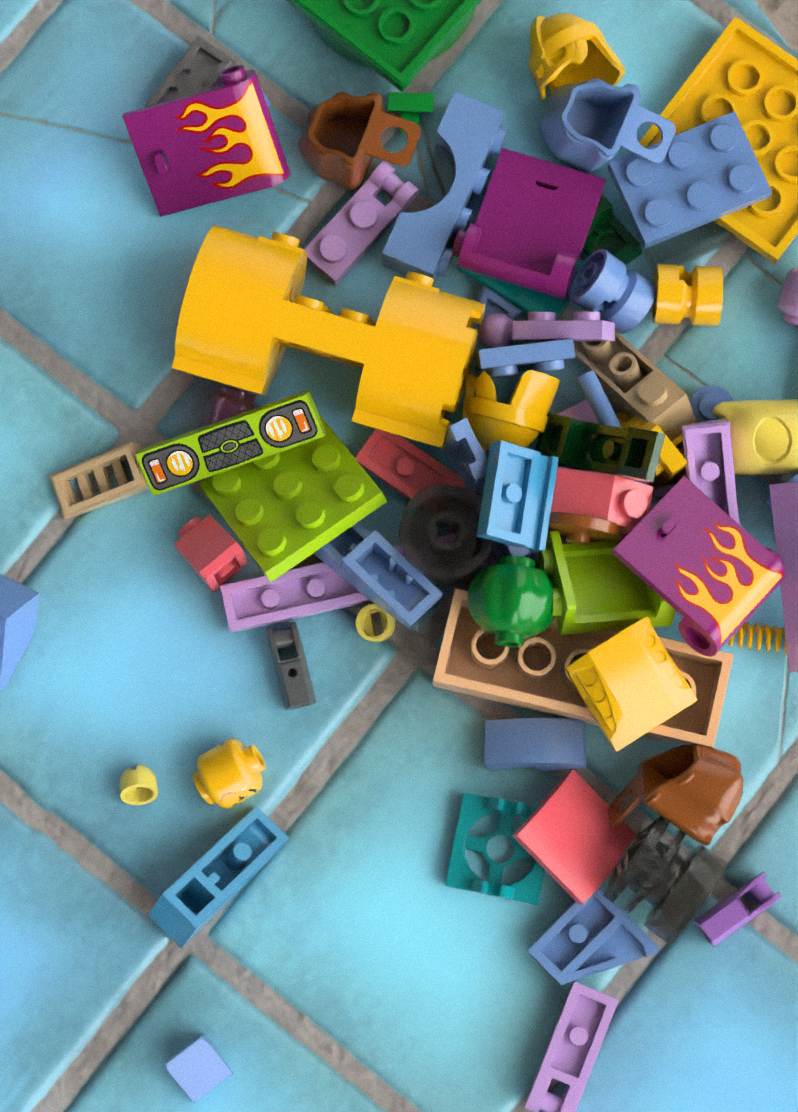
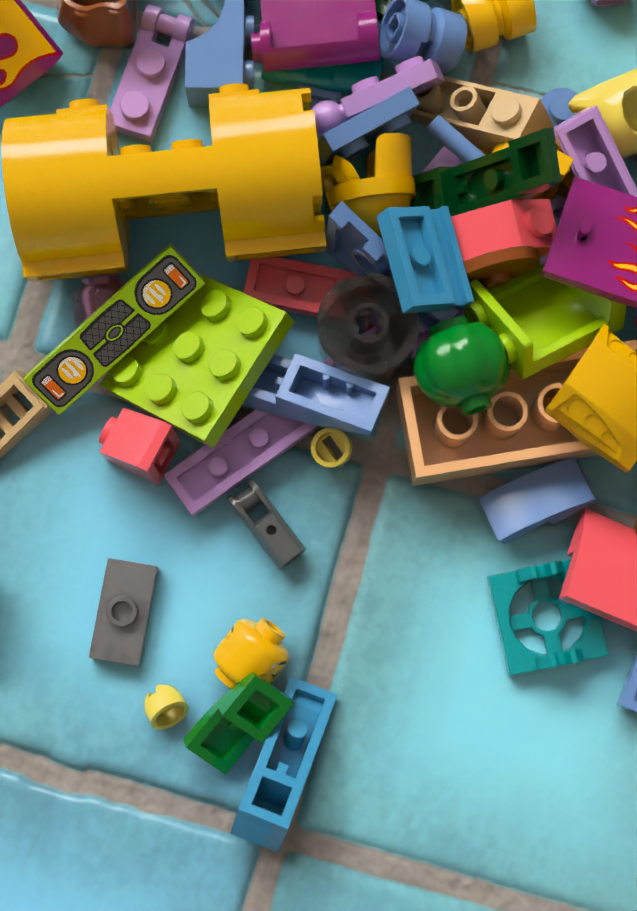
camera: 25 degrees left, 0 degrees up
(137, 690) = (124, 612): none -> flat silver plate
(193, 822) = (235, 720): none -> green slope

